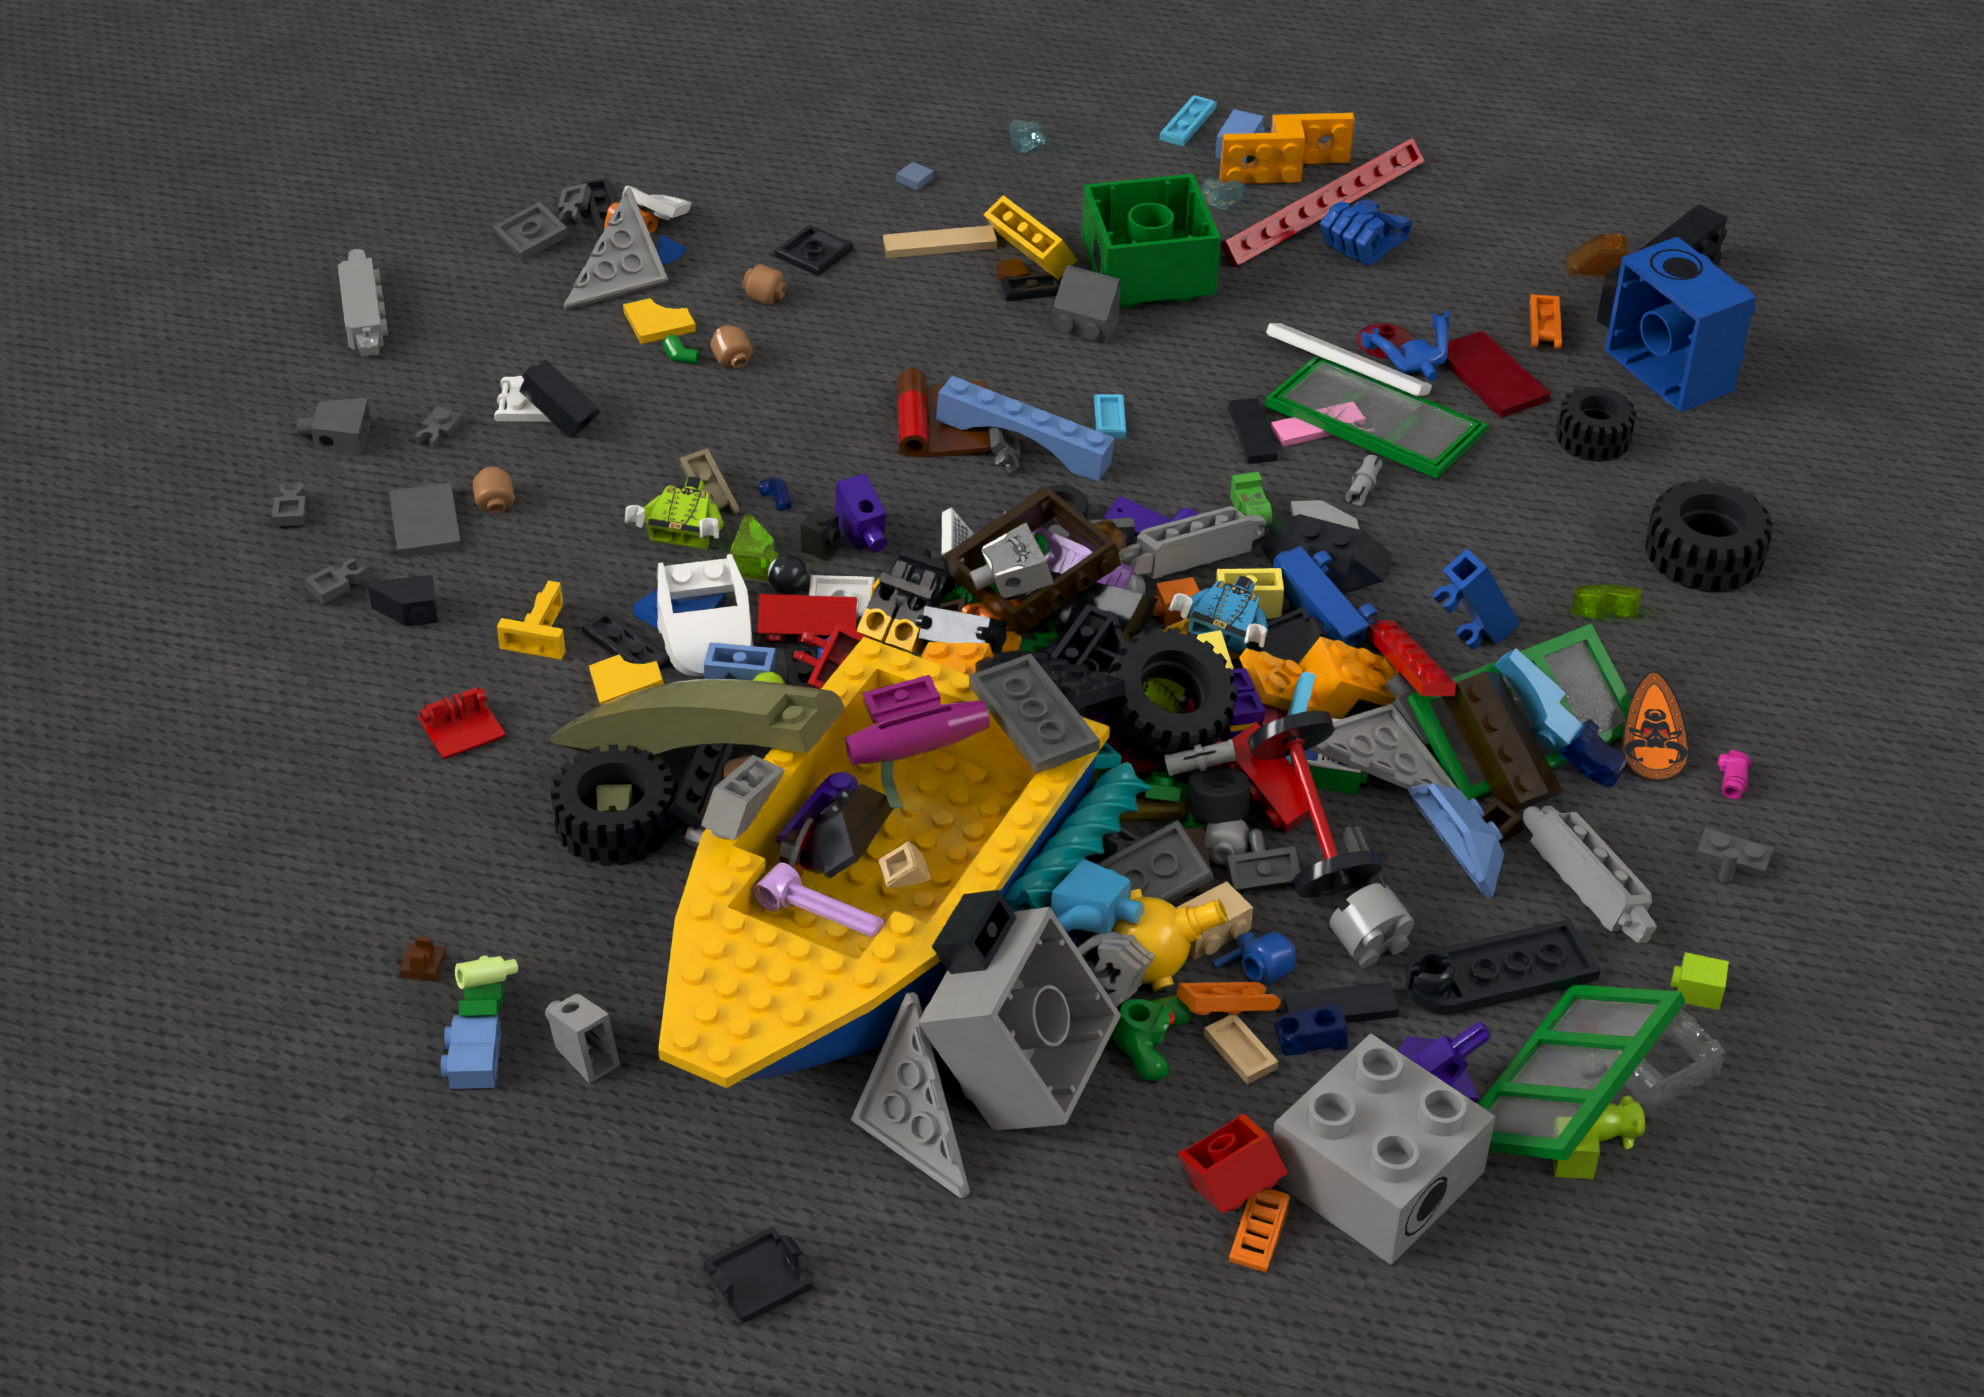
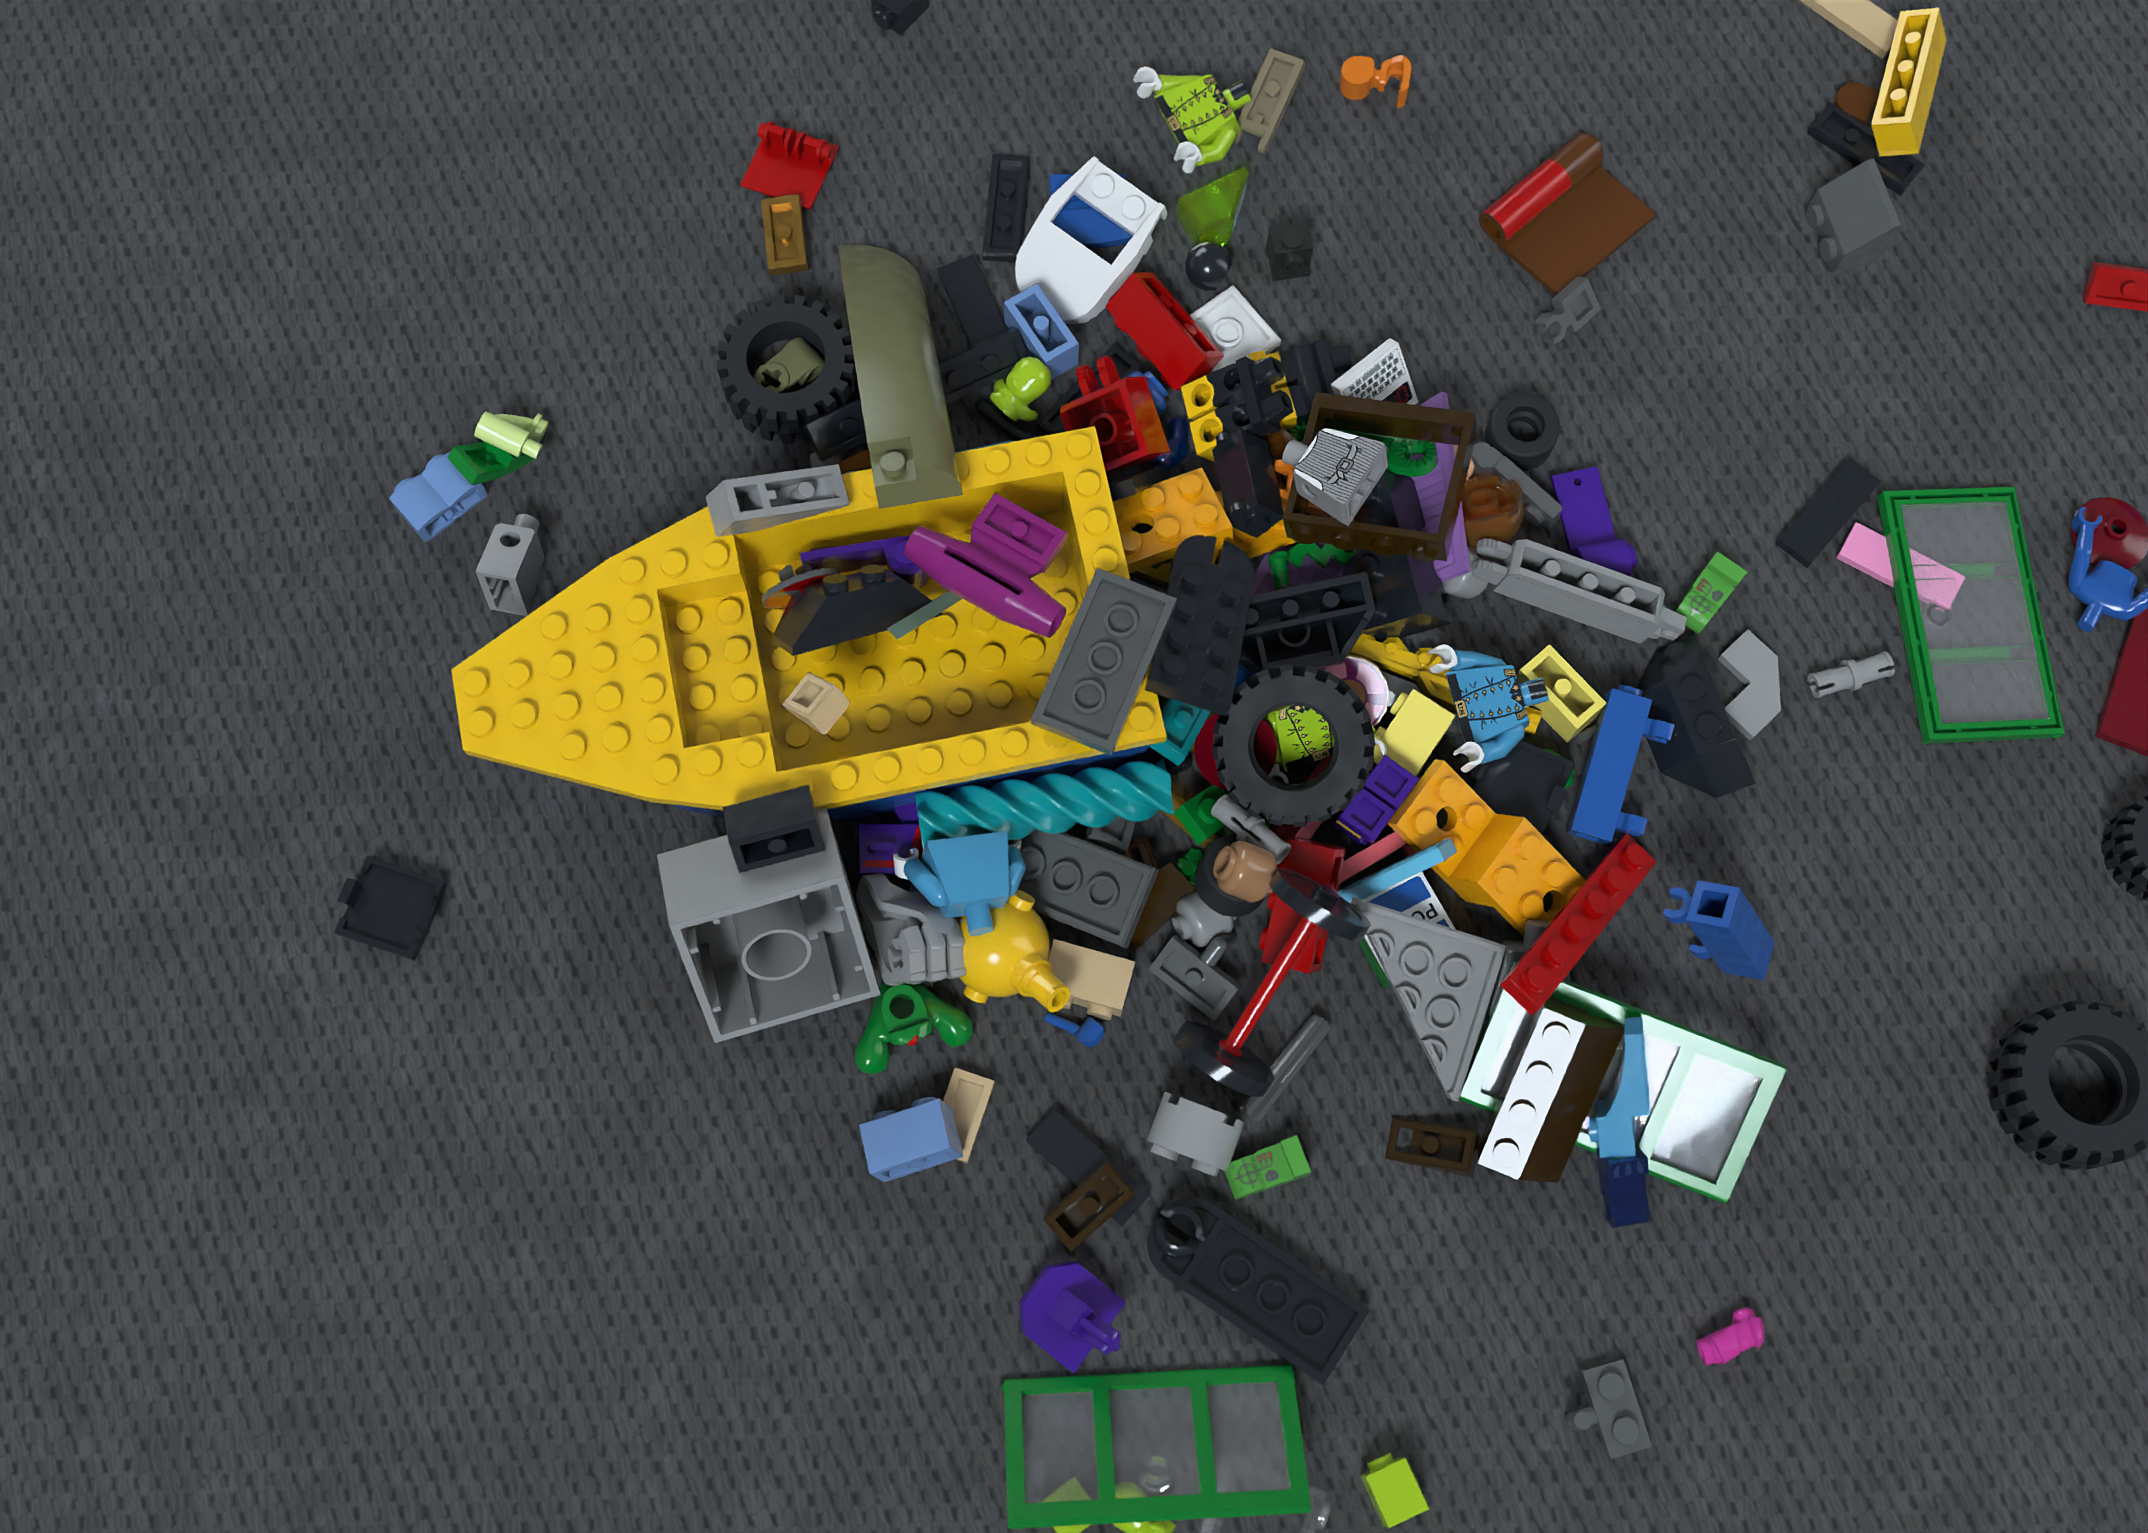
camera: 50 degrees right, 30 degrees up
(423, 960) = (506, 372): reddish brown tile -> none
(510, 754) = (784, 235): none -> pearl gold plate
(536, 633) = (959, 118): yellow bracket -> none
(618, 677) = (948, 247): yellow tile -> none
(744, 436) = (1360, 76): none -> orange leg
(778, 490) = (1322, 162): clear blue arm -> none
(784, 889) = (732, 613): lavender axle -> none
(860, 513) = (1340, 264): dark purple torso -> none
(907, 1103) = (635, 901): light grey tile -> none
(1077, 446) = (1625, 361): medium blue arch -> none
(1110, 415) = (1718, 364): medium azure tile -> none
(1152, 238) = (2005, 198): green brick -> none
(1165, 592) = (1492, 631): orange brick -> none
(1226, 997) = (996, 1064): orange hinge -> none
(1229, 767) = (1245, 871): none -> medium nougat head
(1233, 1164) = (786, 1216): red hinge -> none
(1236, 1071) = (910, 1139): none -> medium blue brick
(1268, 1206) = (793, 1274): orange slope -> none
(1269, 958) = (1081, 1065): blue head -> none
(1312, 1030) = (1026, 1167): clear blue leg -> none
(1349, 359) = (2033, 524): white tile -> none
(1371, 1010) = (1089, 1206): none -> dark brown slope
(1382, 1147) = (907, 1336): light grey brick -> none
(1429, 909) = (1267, 1168): none -> bright green leg
(1463, 832) = (1397, 1134): medium blue wedge -> none
(1592, 871) = (1451, 1289): light grey hinge -> none
(1595, 600) = (1868, 1032): clear neon green slope -> none
(1655, 731) = (1716, 1222): shield -> none

